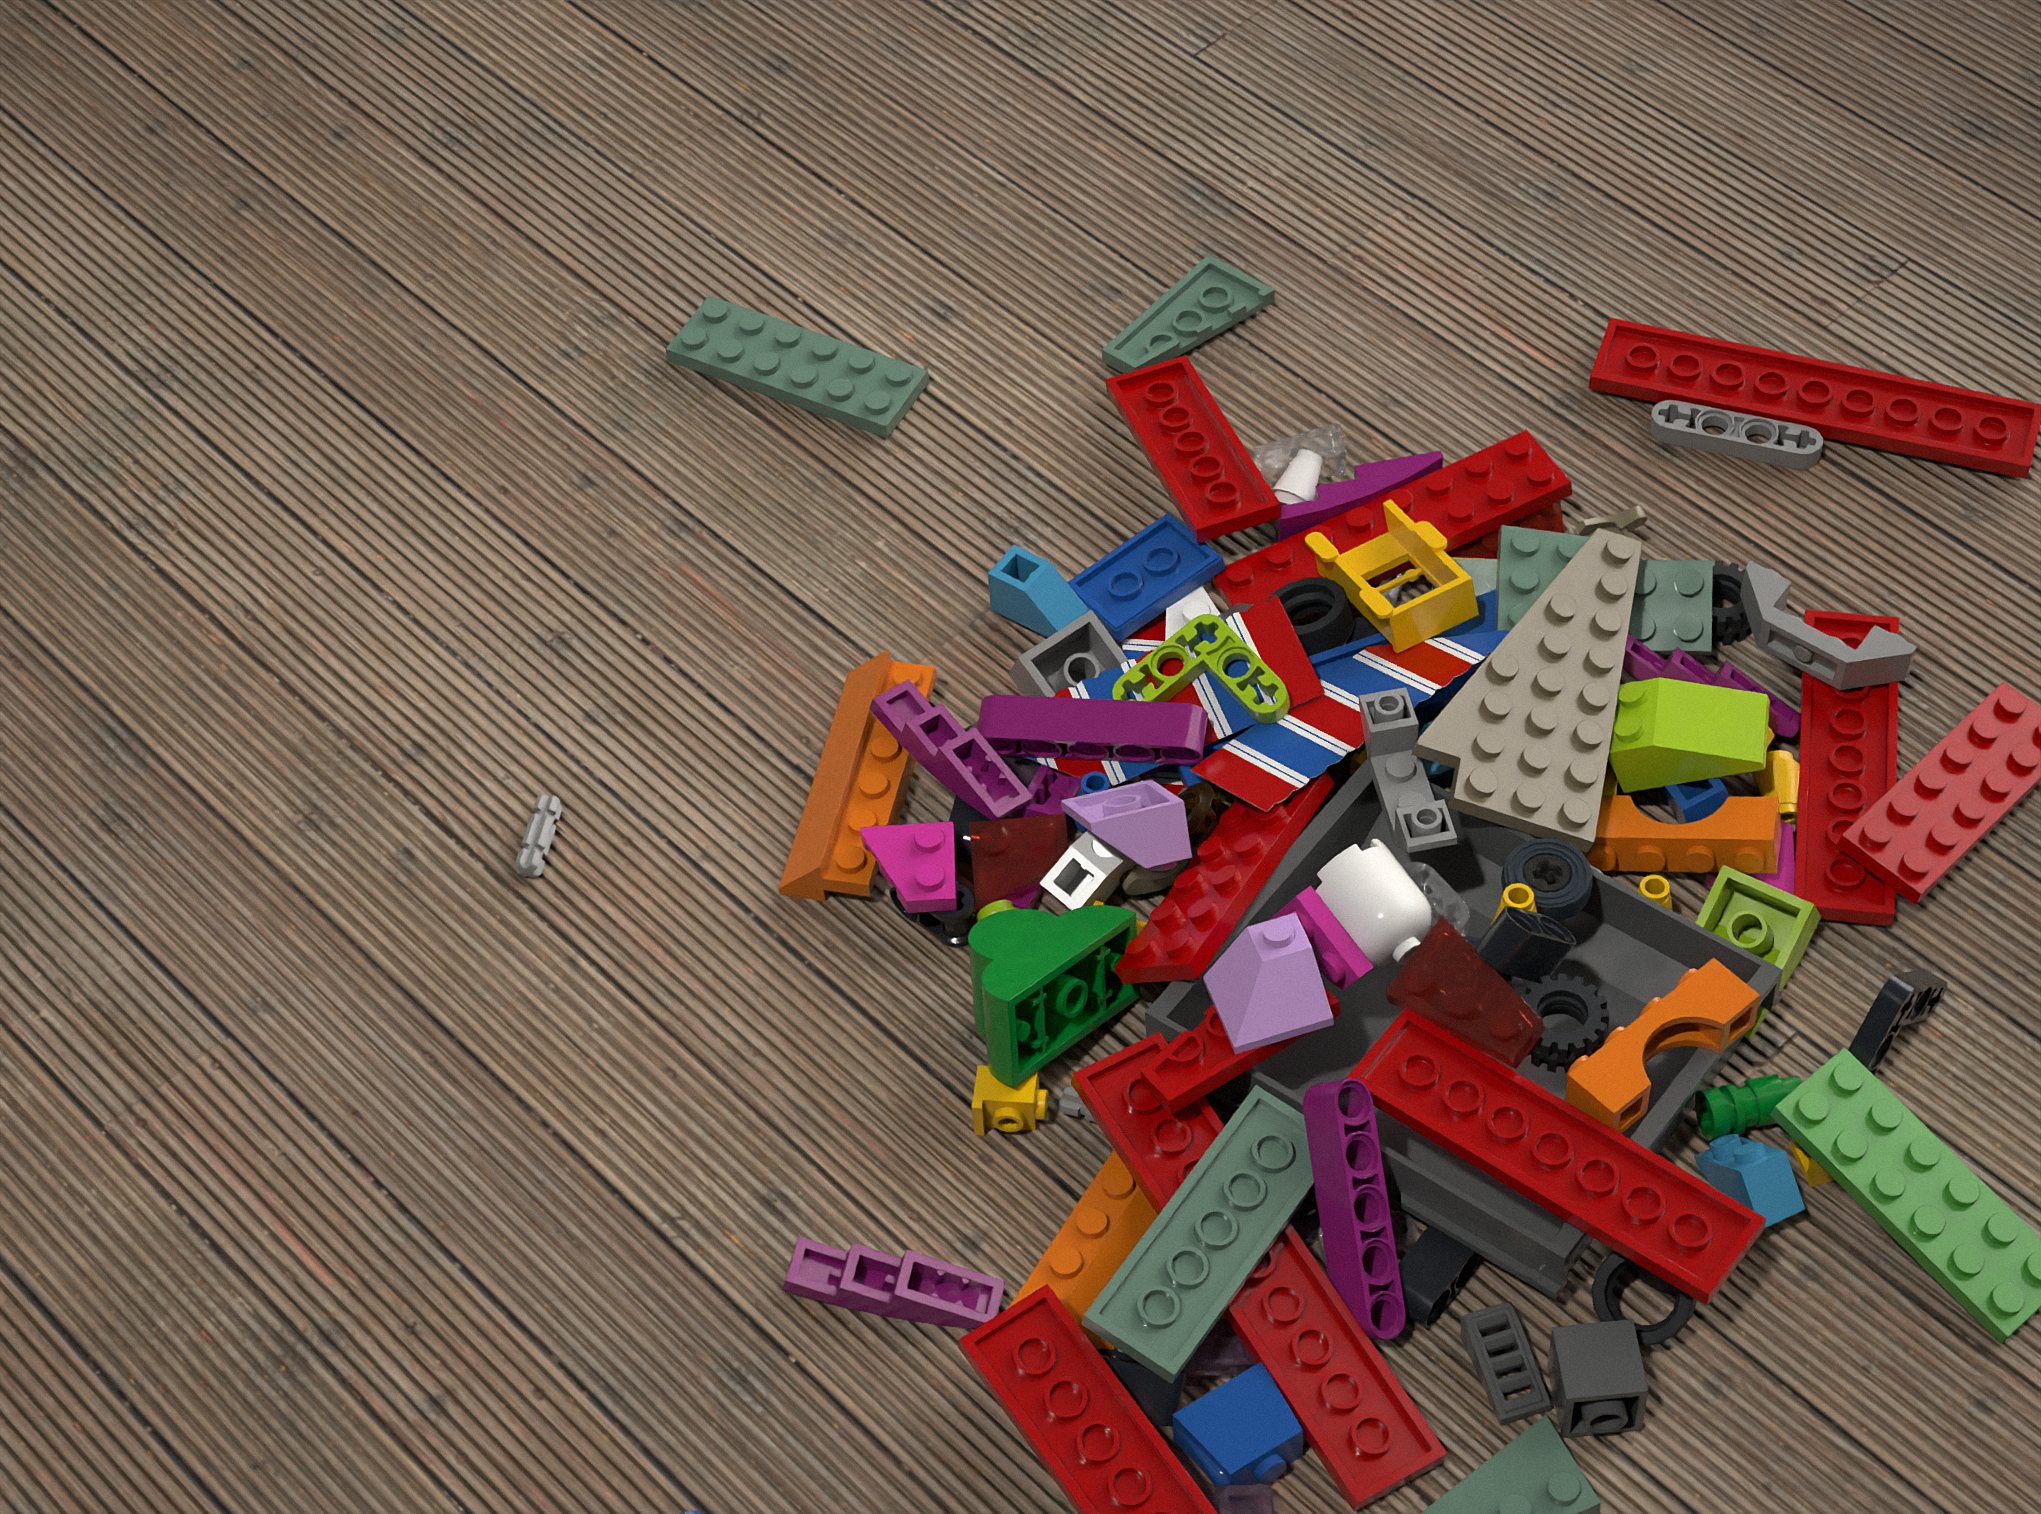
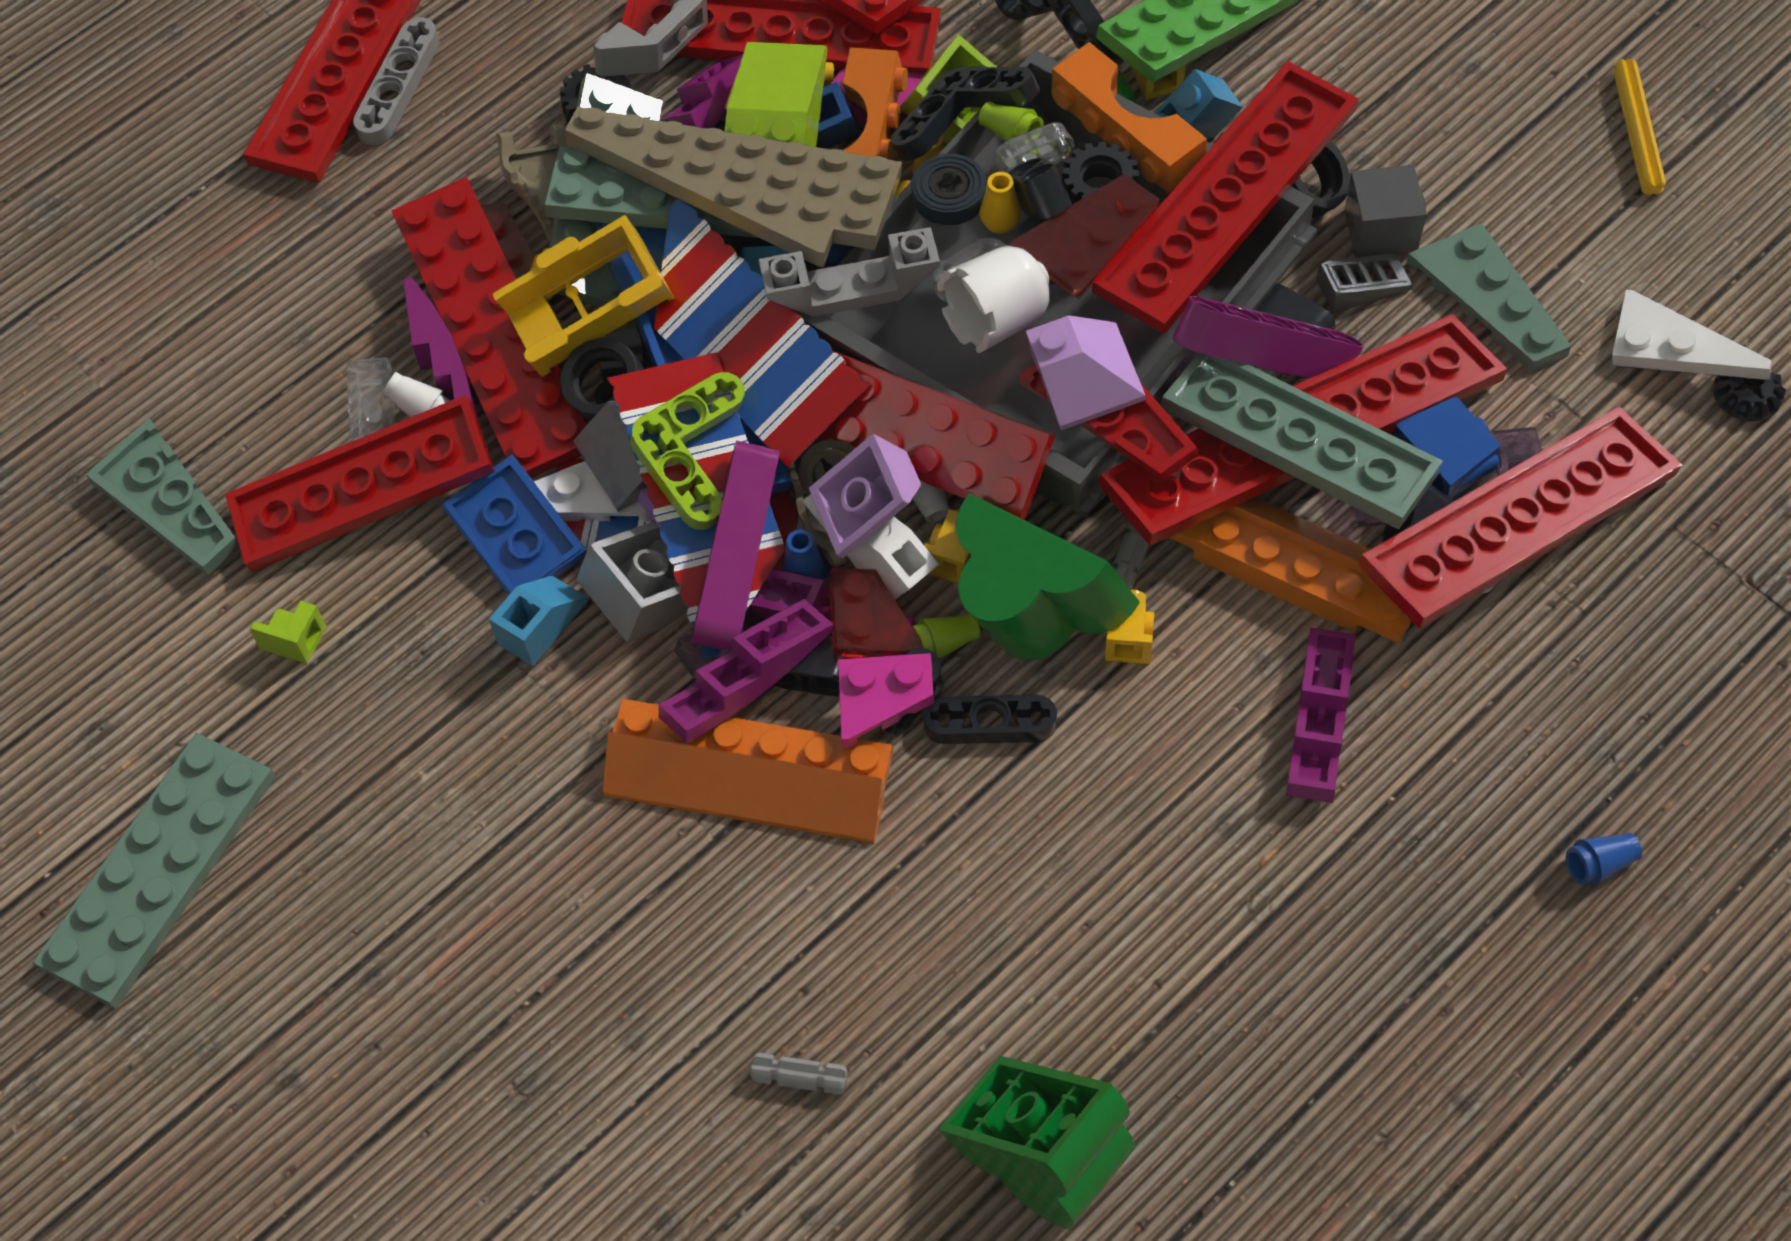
camera: 90 degrees left, 10 degrees up
(423, 1004) = (1043, 1135): none -> green brick
(917, 999) = (1004, 732): none -> black beam
(1030, 427) = (291, 633): none -> lime panel
(1333, 947) = (1009, 343): dark pink wing -> none
(1603, 956) = (1047, 142): none -> clear beam
(1643, 937) = (1008, 120): none -> lime cone
(1710, 902) = (951, 94): none -> black beam

